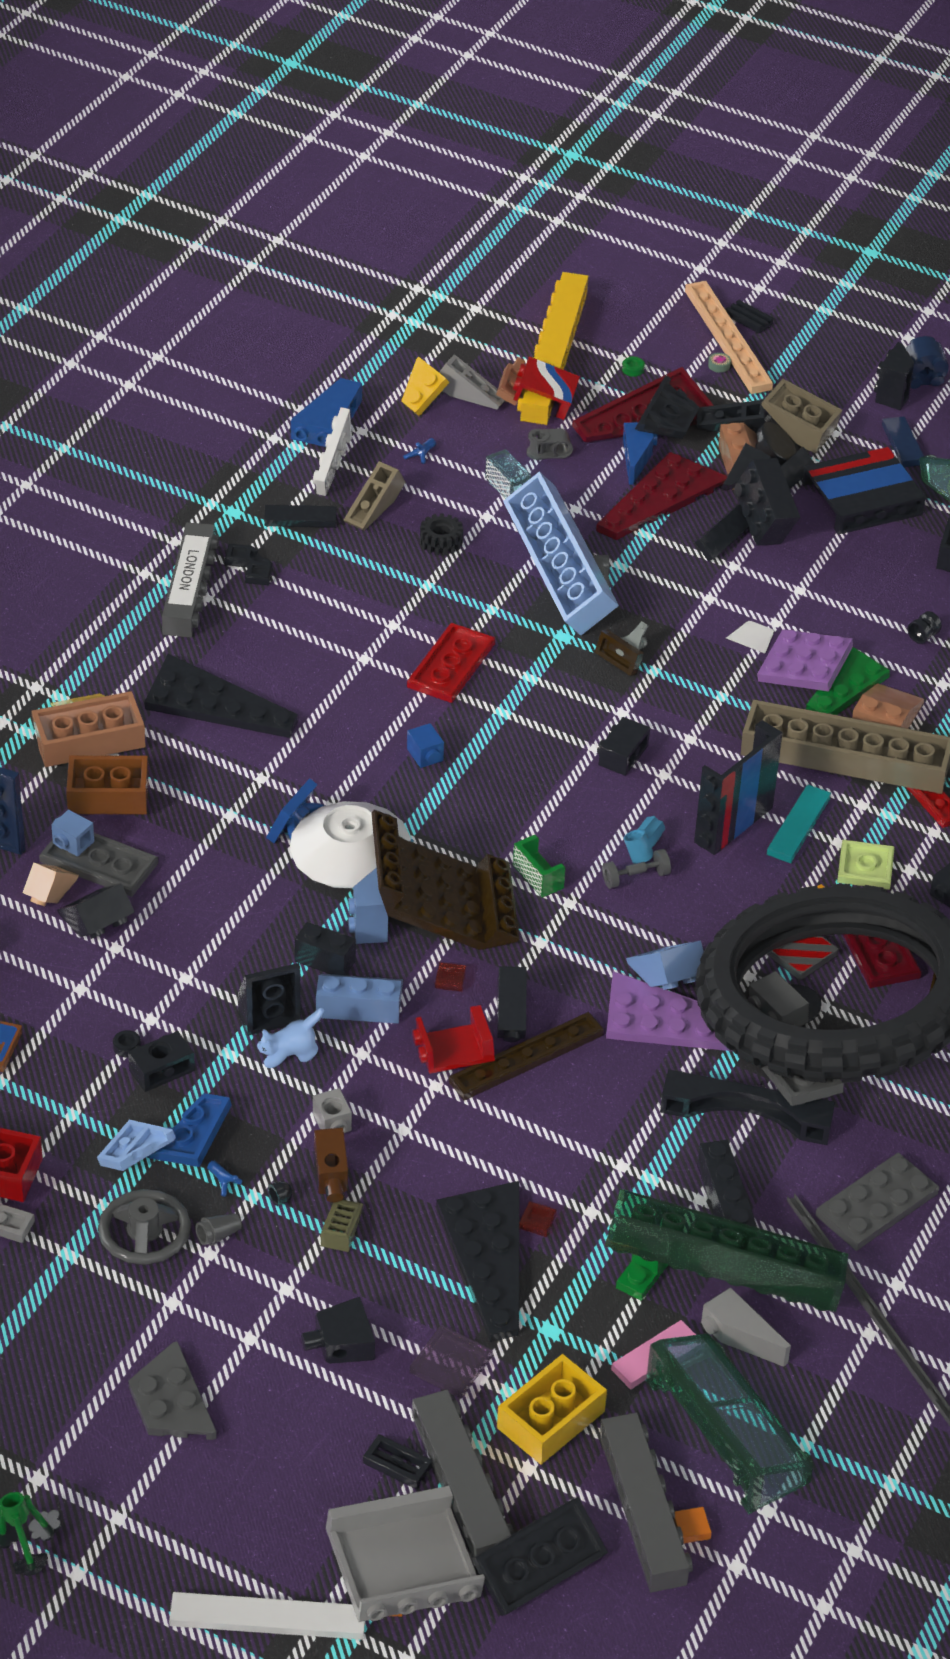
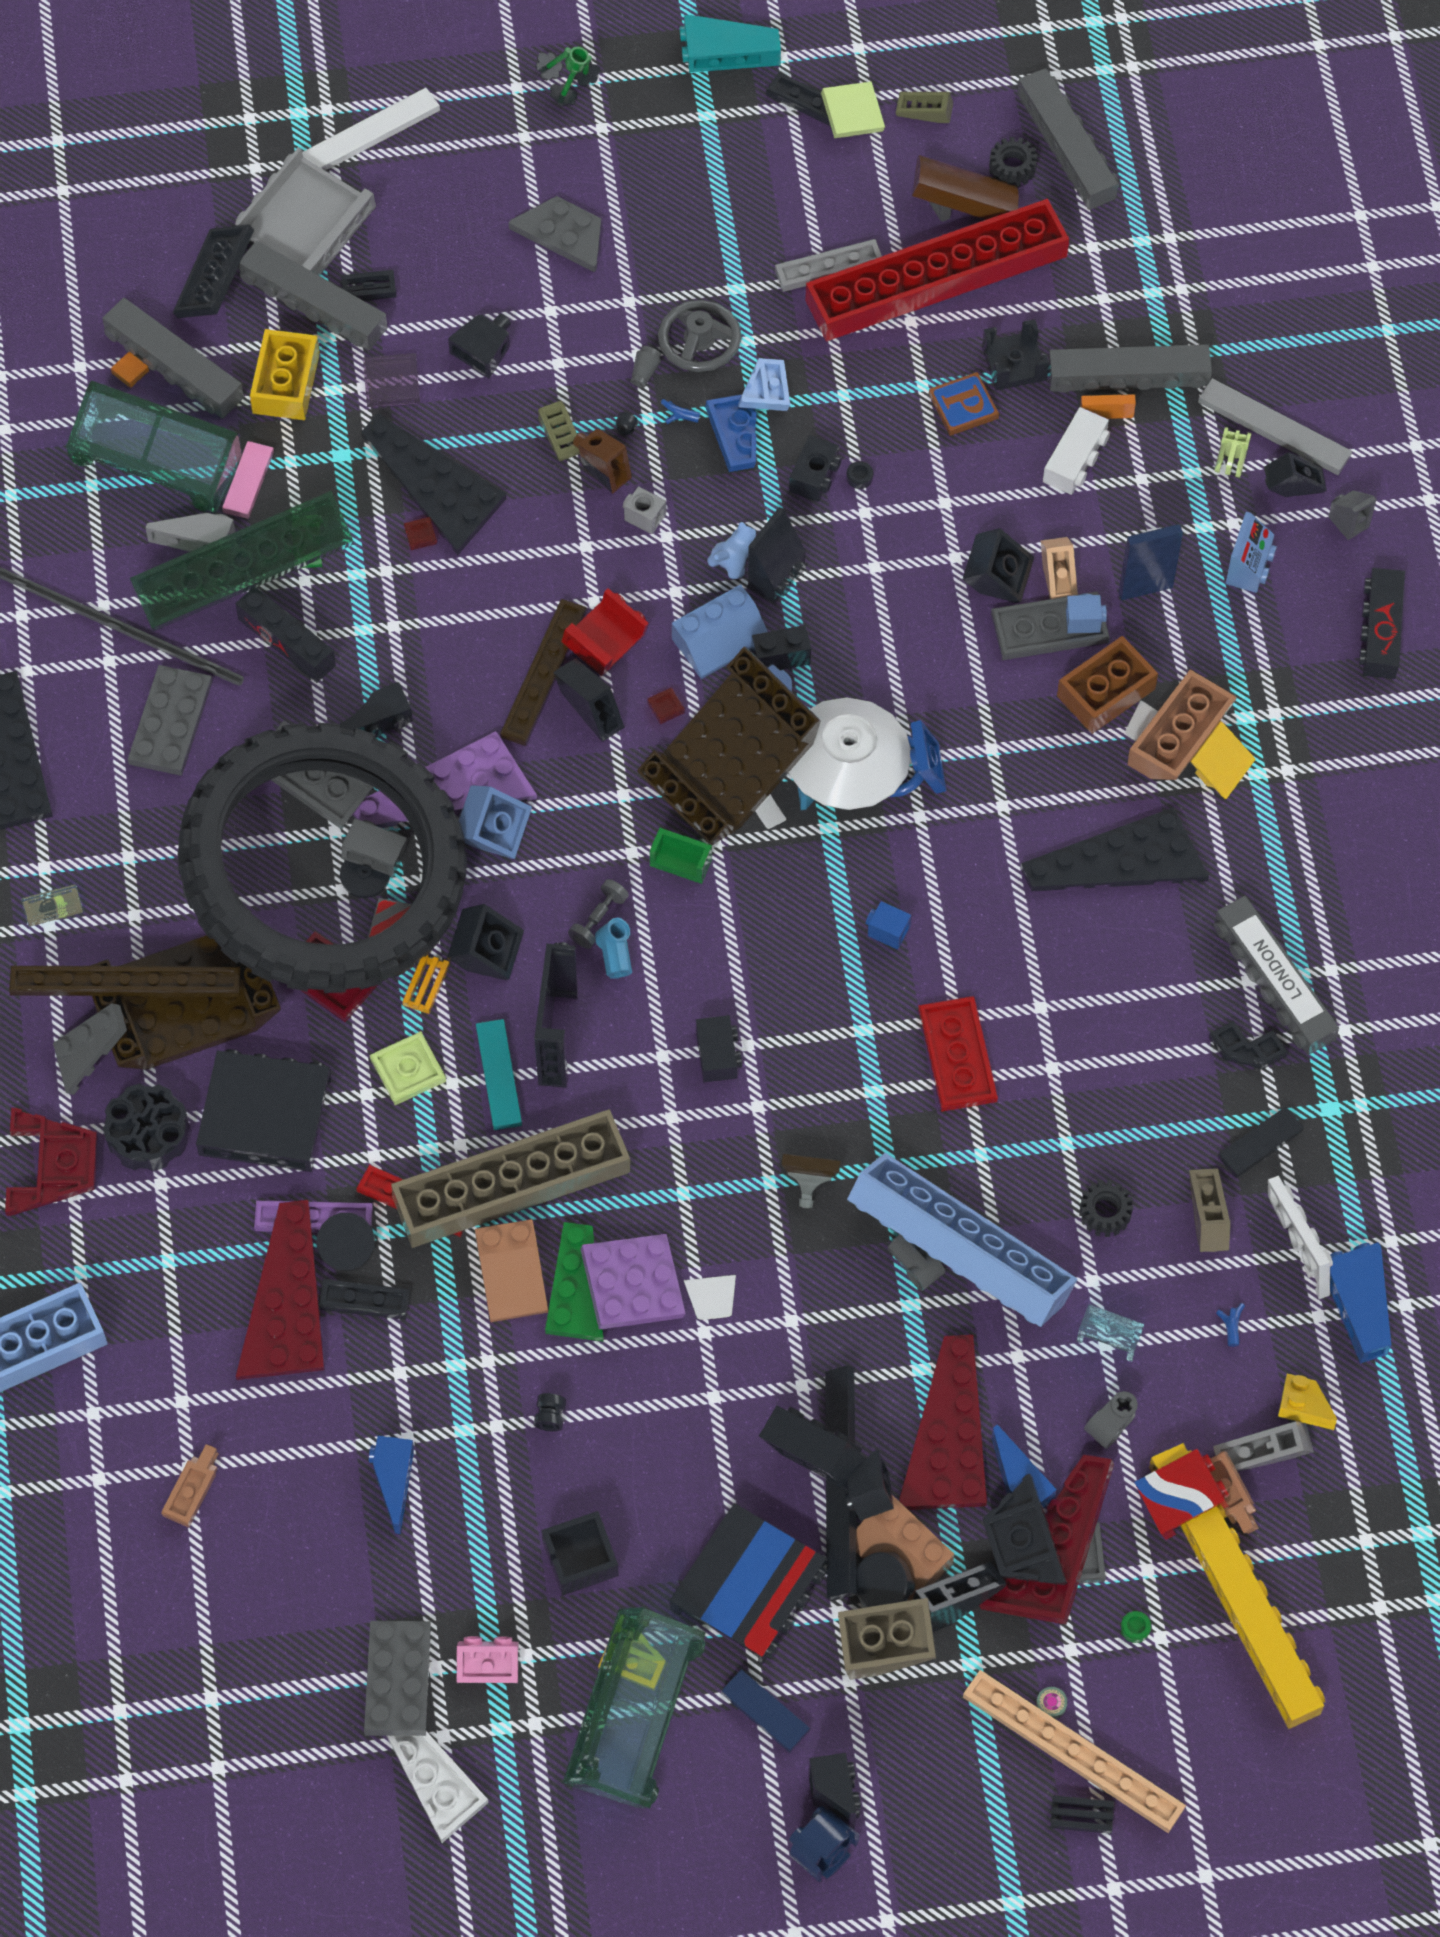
camera: 145 degrees right, 20 degrees up
(740, 894) = (485, 942): none -> black slope

